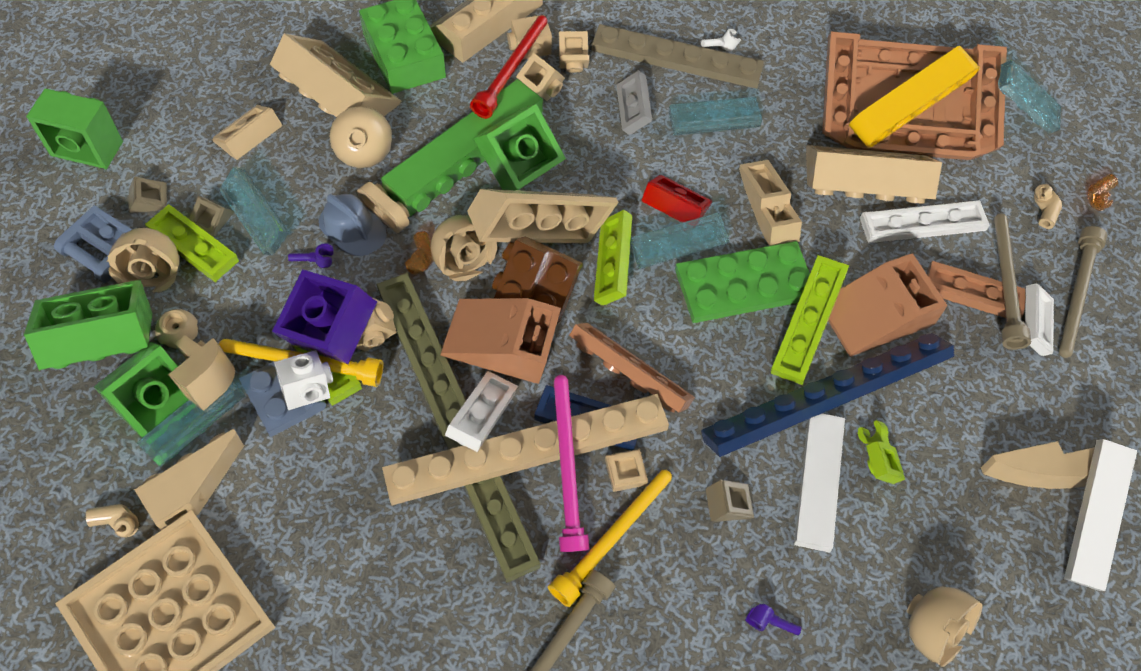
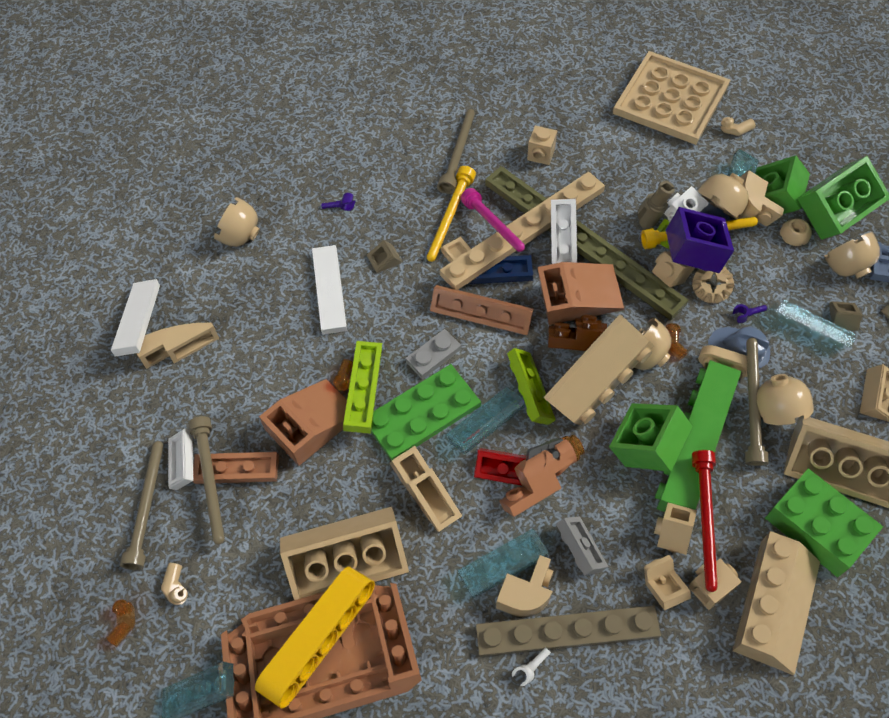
camera: 165 degrees right, 0 degrees up
(190, 480) = (710, 148): tan slope -> none
(194, 243) = (838, 286): lime plate -> none
(246, 366) = (726, 193): none -> tan cylinder
(334, 409) = (655, 205): none -> dark tan arm
(417, 117) = (756, 452): none -> dark tan piece
(426, 590) = (542, 145): none -> tan brick
(646, 162) = (539, 472): none -> nougat plate
(704, 82) = (525, 597): none -> tan brick
(709, 342) = (433, 353): none -> light grey plate
(826, 394) = (335, 342): dark blue plate -> none
(830, 347) = (342, 378): none -> clear orange arm
(883, 457) = (288, 310): lime plate -> none
(924, 221) = (298, 518): white tile -> none

